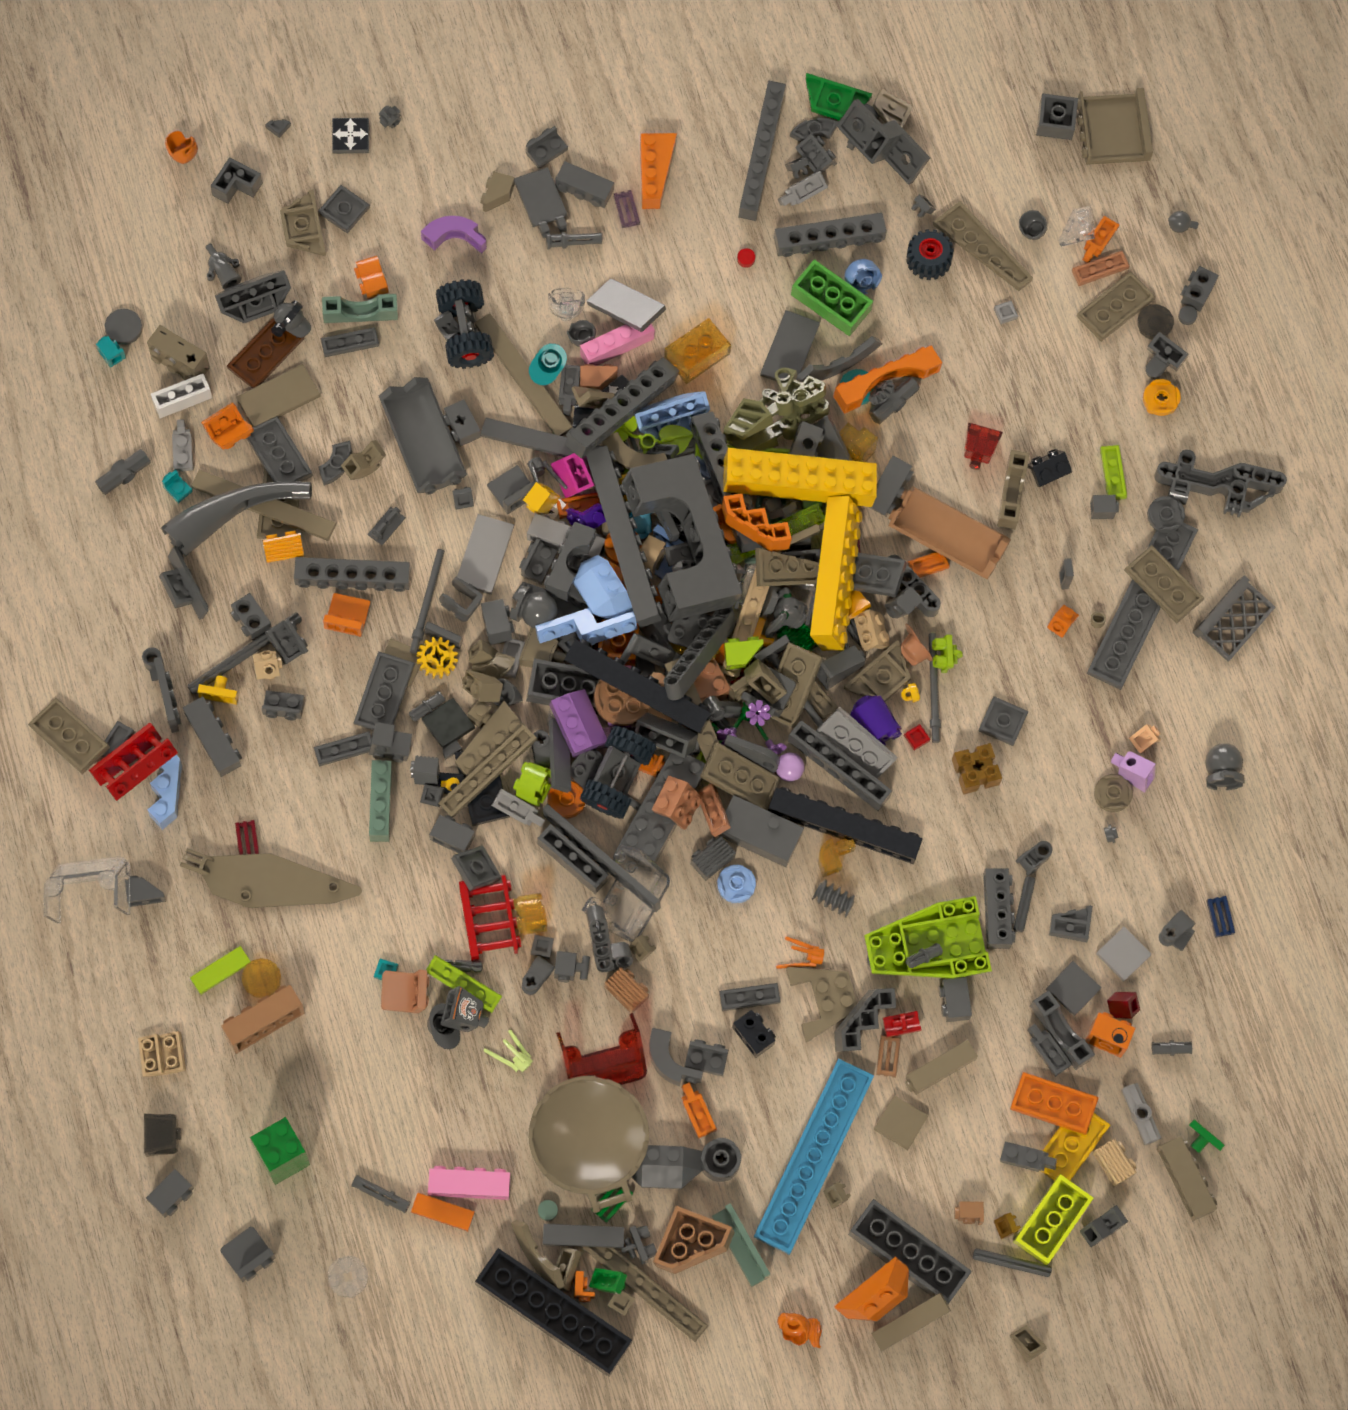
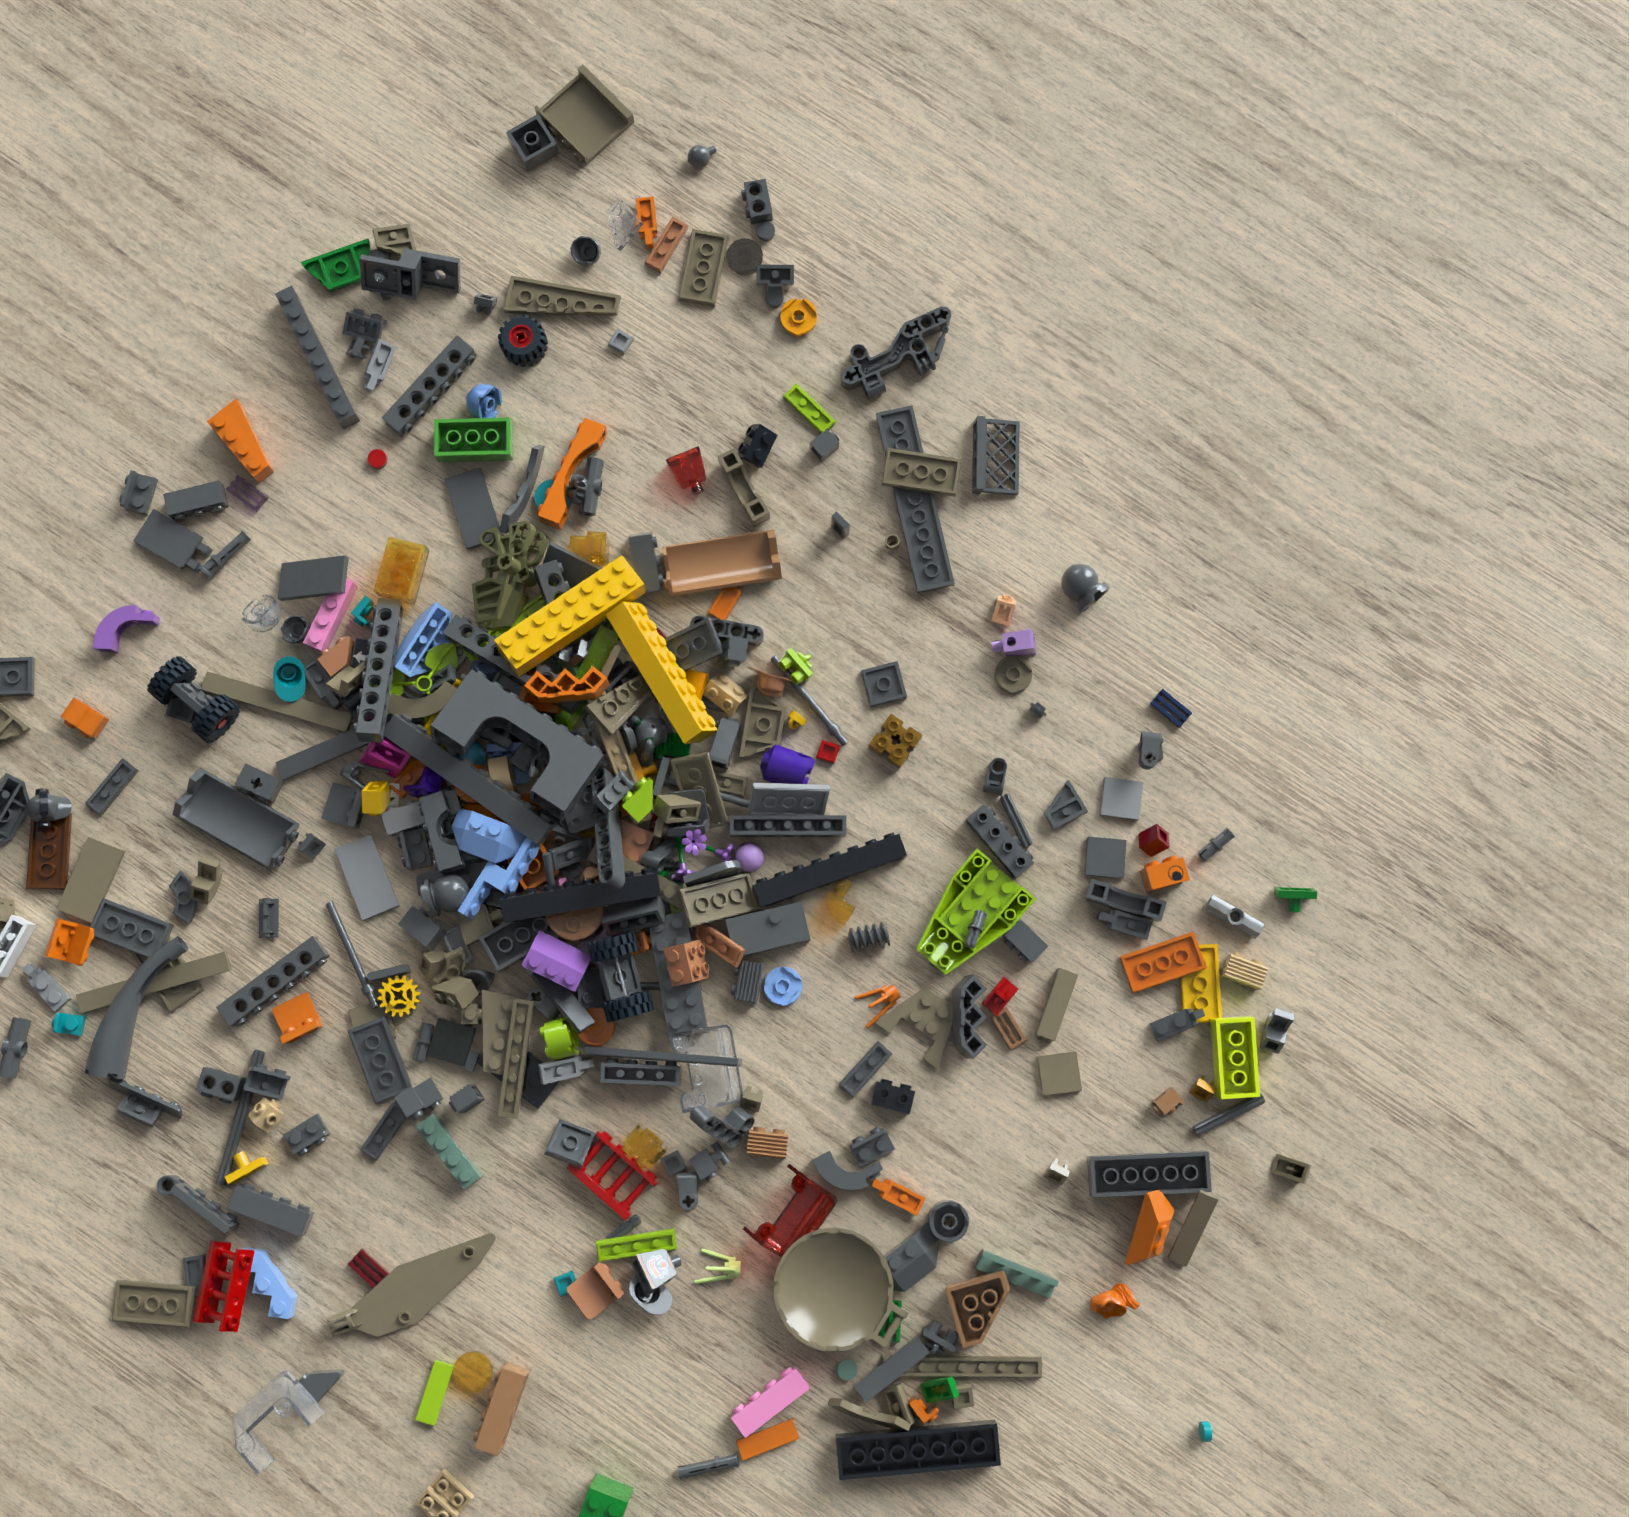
camera: 35 degrees left, 10 degrees up
(283, 547) = (199, 1005): light orange brick -> none
(340, 310) = (112, 740): sand green arch -> none
(432, 795) = (487, 1111): dark grey tile -> none
(449, 781) = (491, 1089): black sticker -> none
(452, 834) = (529, 1131): dark grey brick -> none
(467, 589) = (381, 918): dark grey piece -> none
(498, 192) = (129, 561): dark tan slope -> none
(643, 357) = (363, 608): none -> teal bracket
(726, 629) = (613, 792): none -> dark grey plate
(813, 1156) = (1015, 1156): dark azure plate -> none
(819, 127) = (348, 299): dark grey tile -> none
(1062, 621) = (866, 564): orange bracket -> none
(1166, 514) = (878, 413): dark grey tile -> none
(1186, 1178) = (1307, 939): dark tan brick -> none

